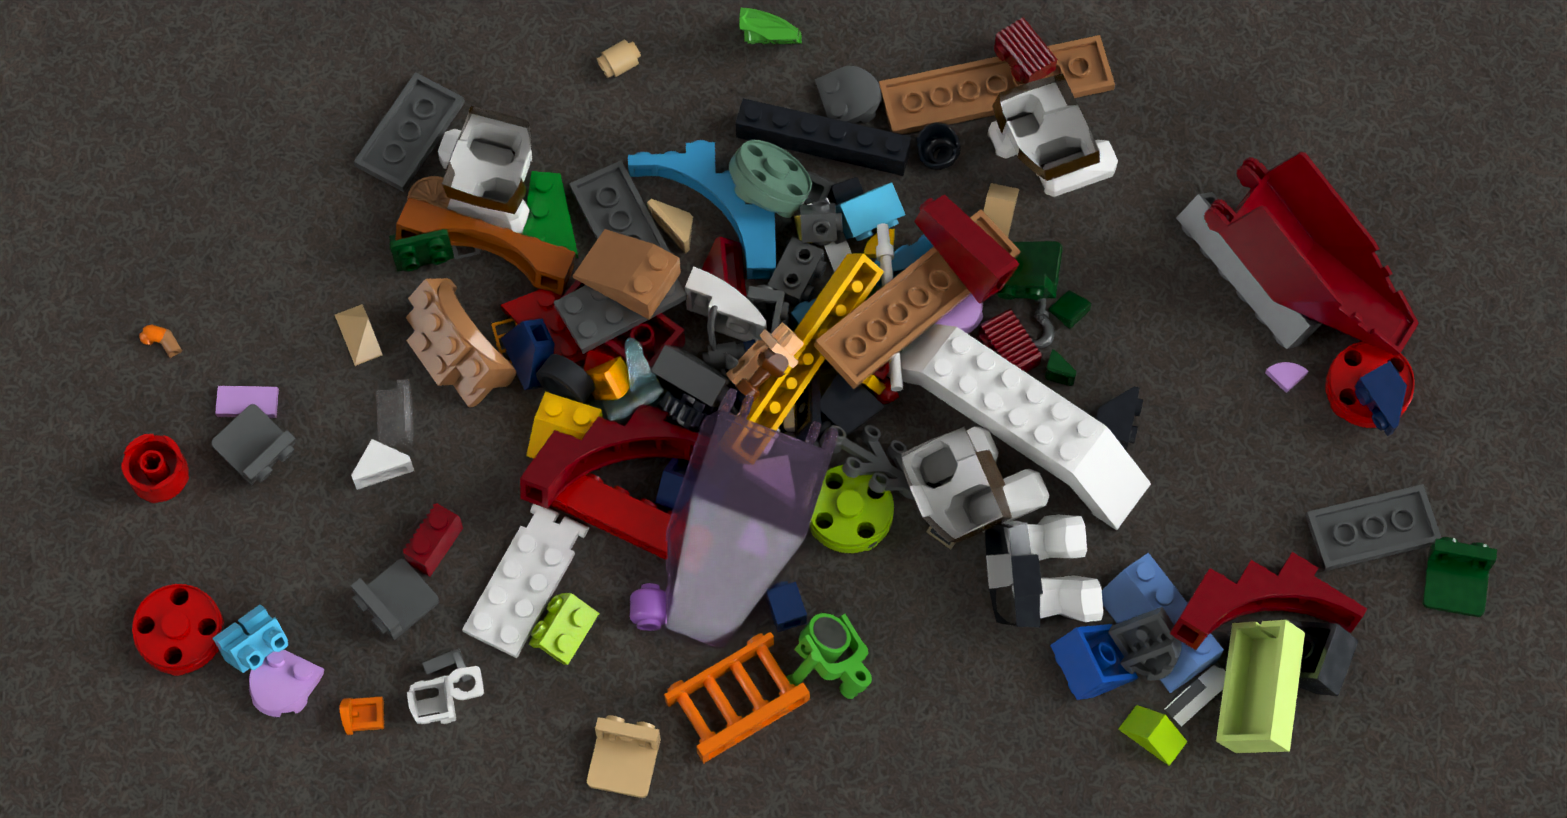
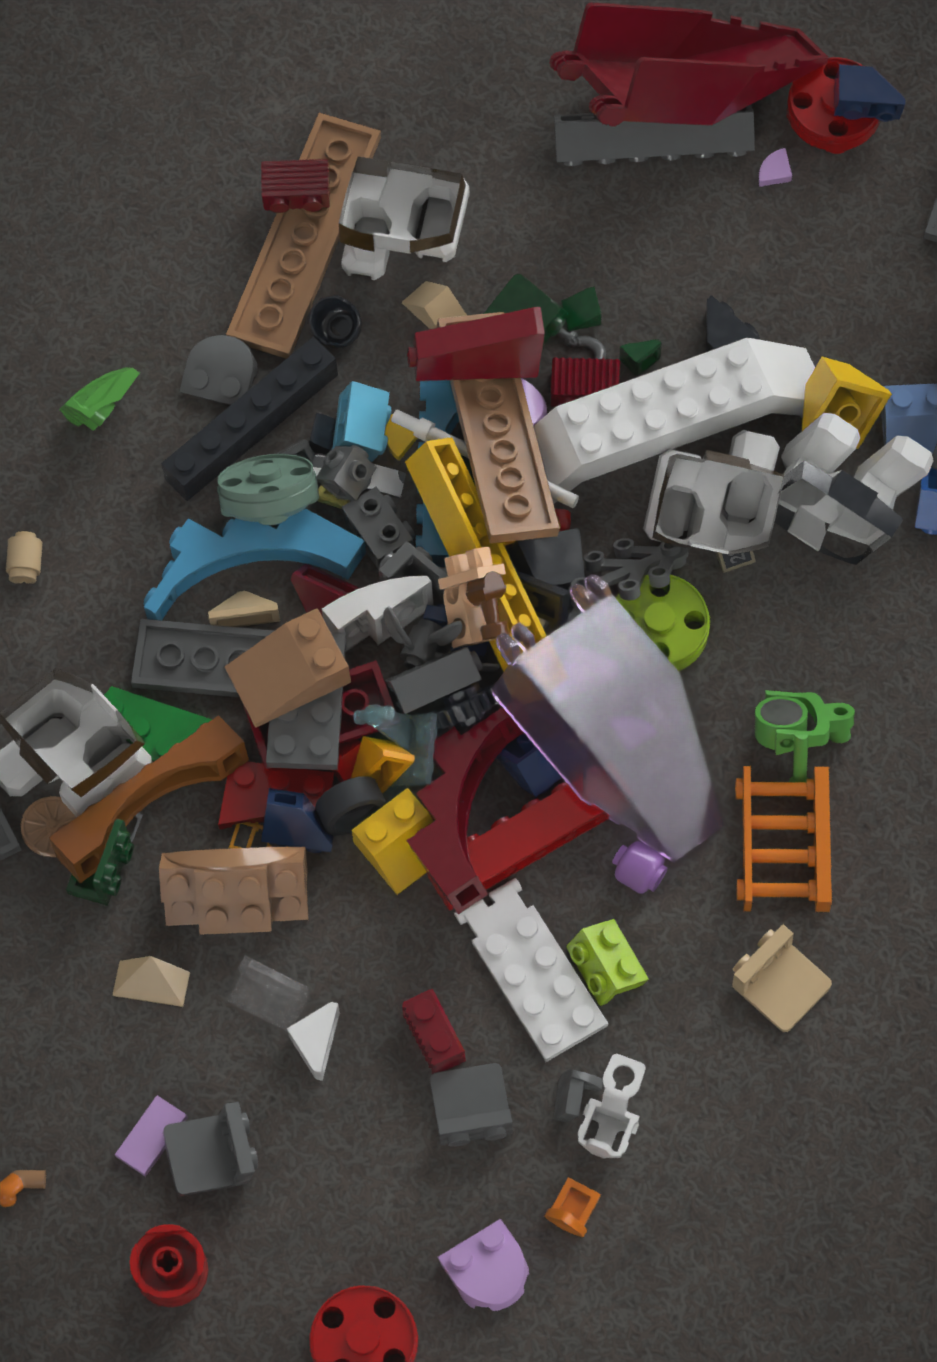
camera: 55 degrees left, 0 degrees up
(259, 639) = (429, 1269): medium azure hips -> none
(786, 606) = (722, 739): dark blue brick -> none
(1115, 530) = (844, 392): none -> yellow slope

